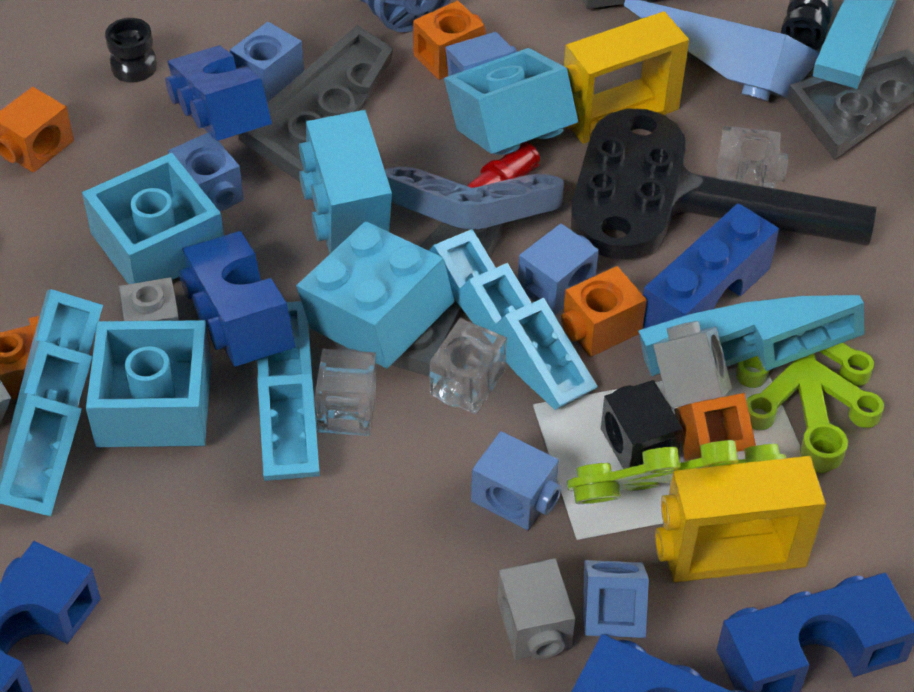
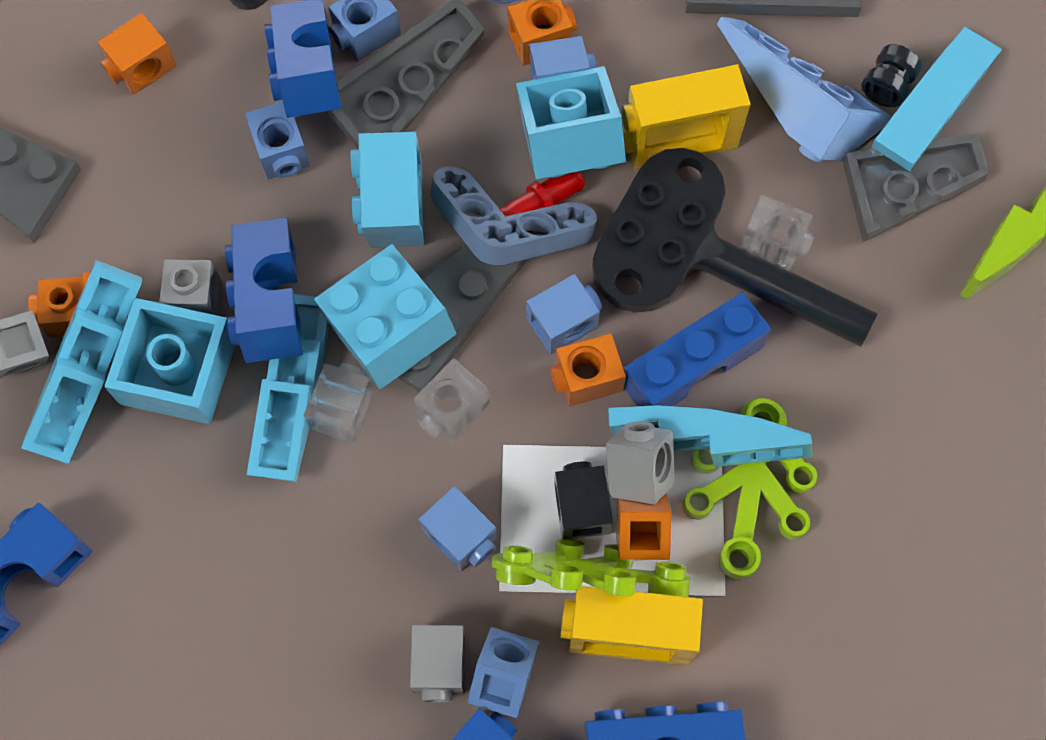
camera: 15 degrees right, 20 degrees up
(149, 218) = (213, 186): medium azure brick -> none
(496, 301) = (503, 362): medium azure slope -> none

